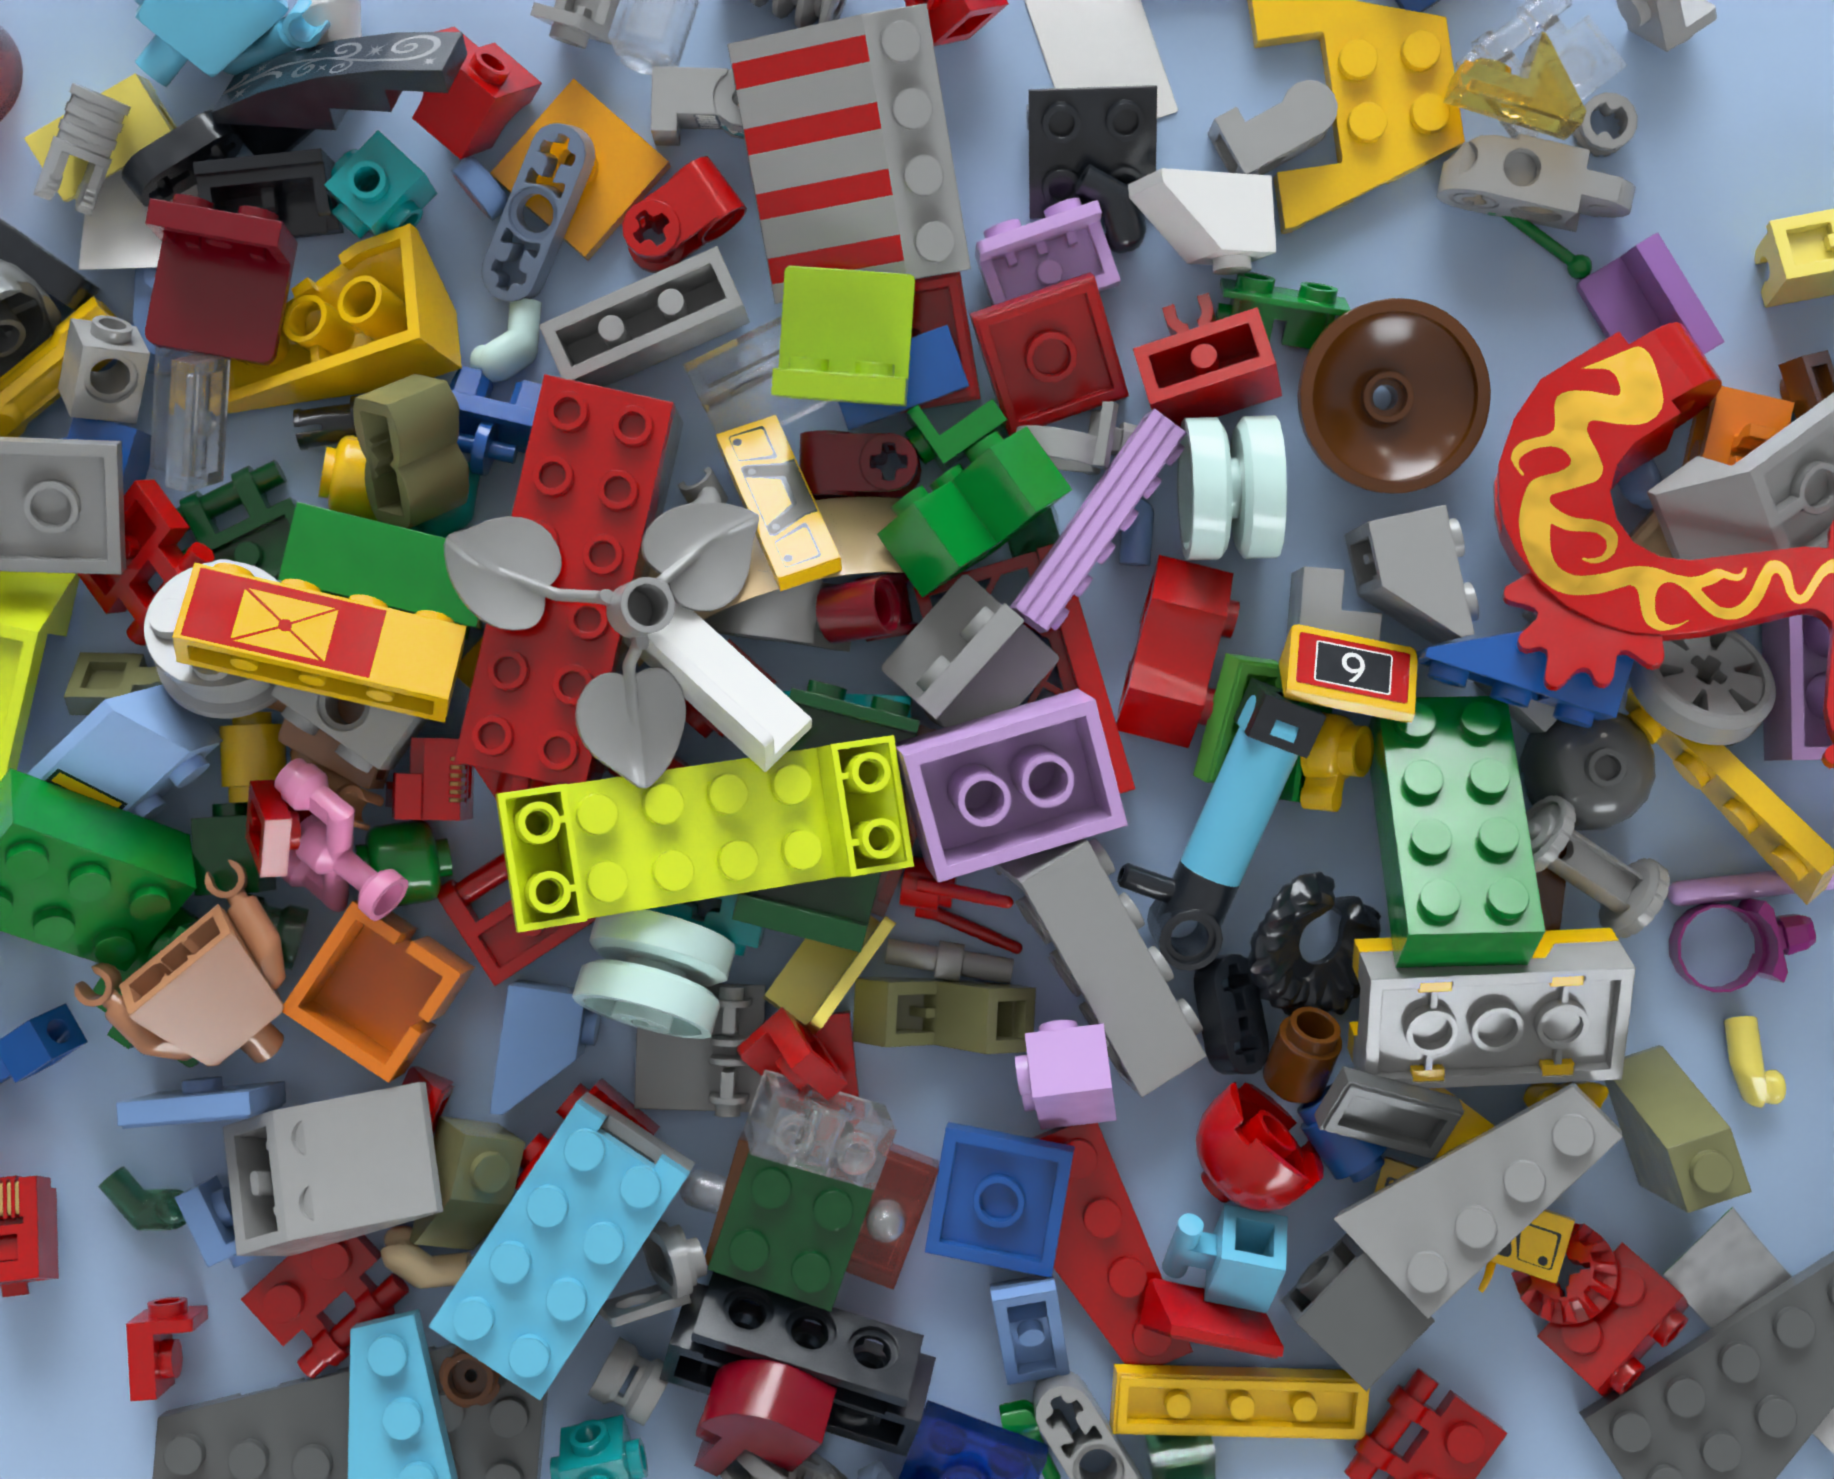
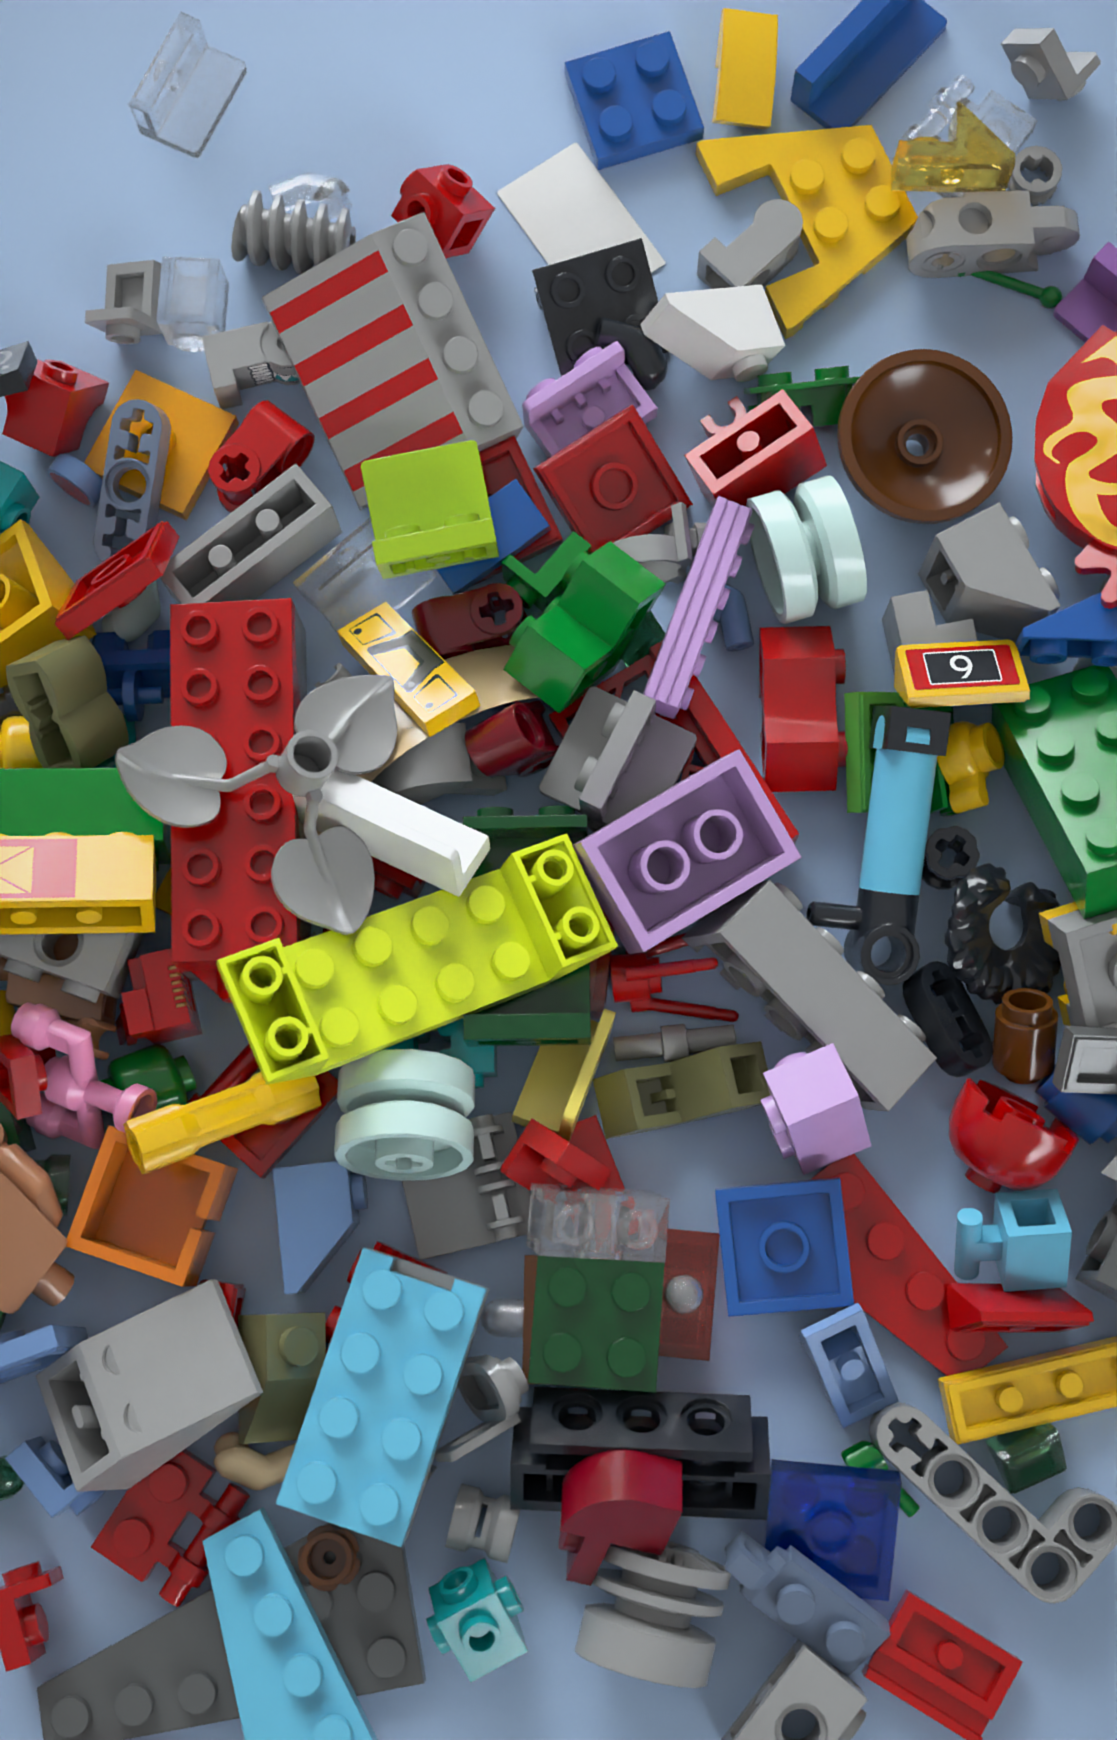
camera: 10 degrees left, 10 degrees down
(424, 930) = (182, 1129): none -> yellow axle
(496, 323) = (117, 579): none -> red plate
(1300, 851) = (965, 859): none -> black bush

